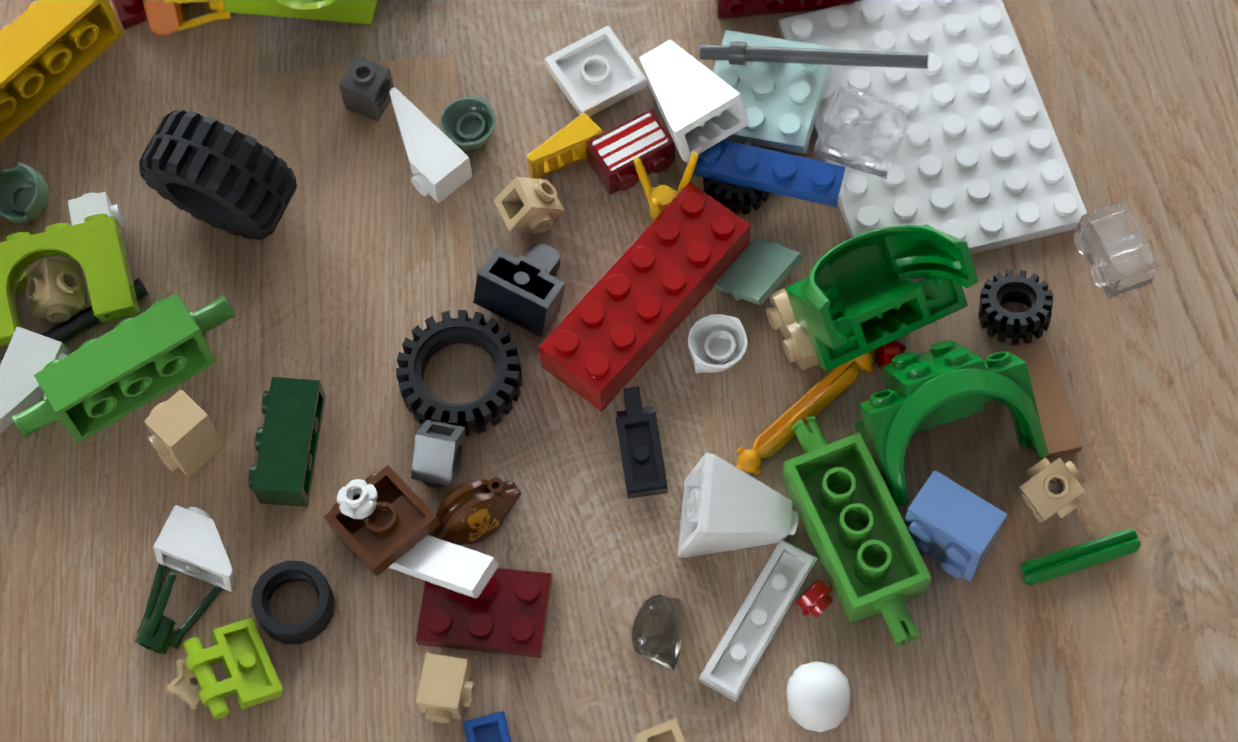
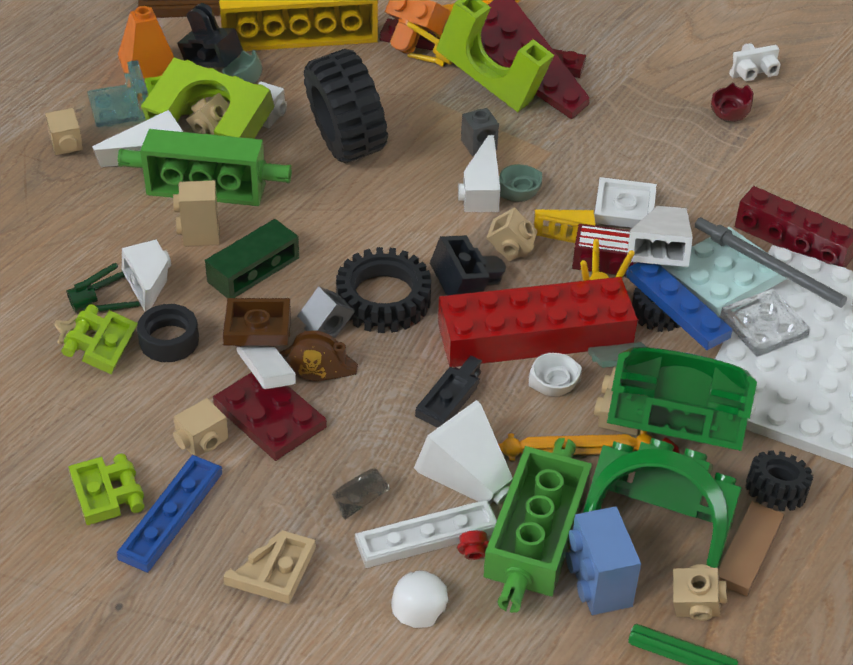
camera: 35 degrees right, 20 degrees down
(361, 507) = (253, 298): white plate -> none

